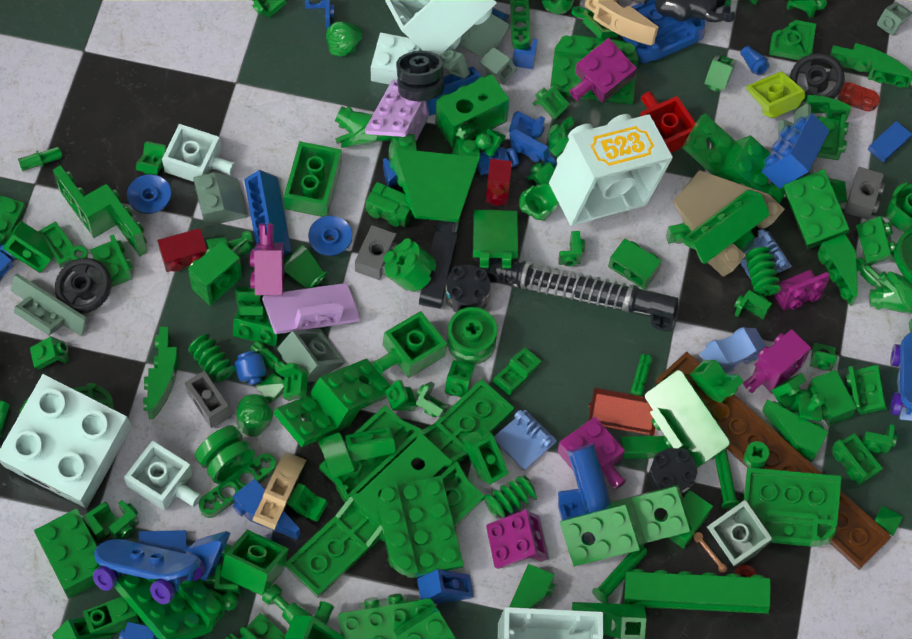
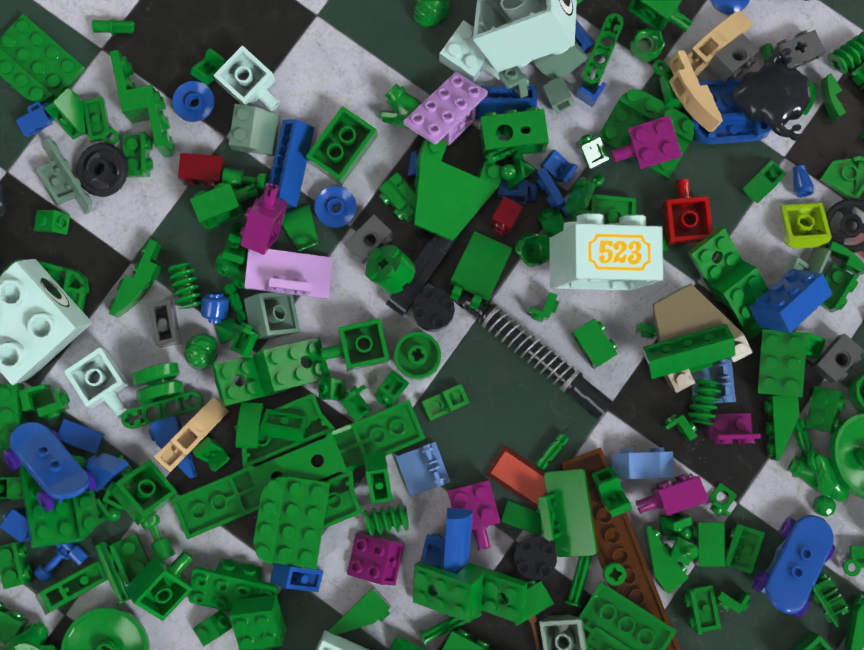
camera: 25 degrees right, 20 degrees up
(420, 75) = (476, 85): black wheel -> none

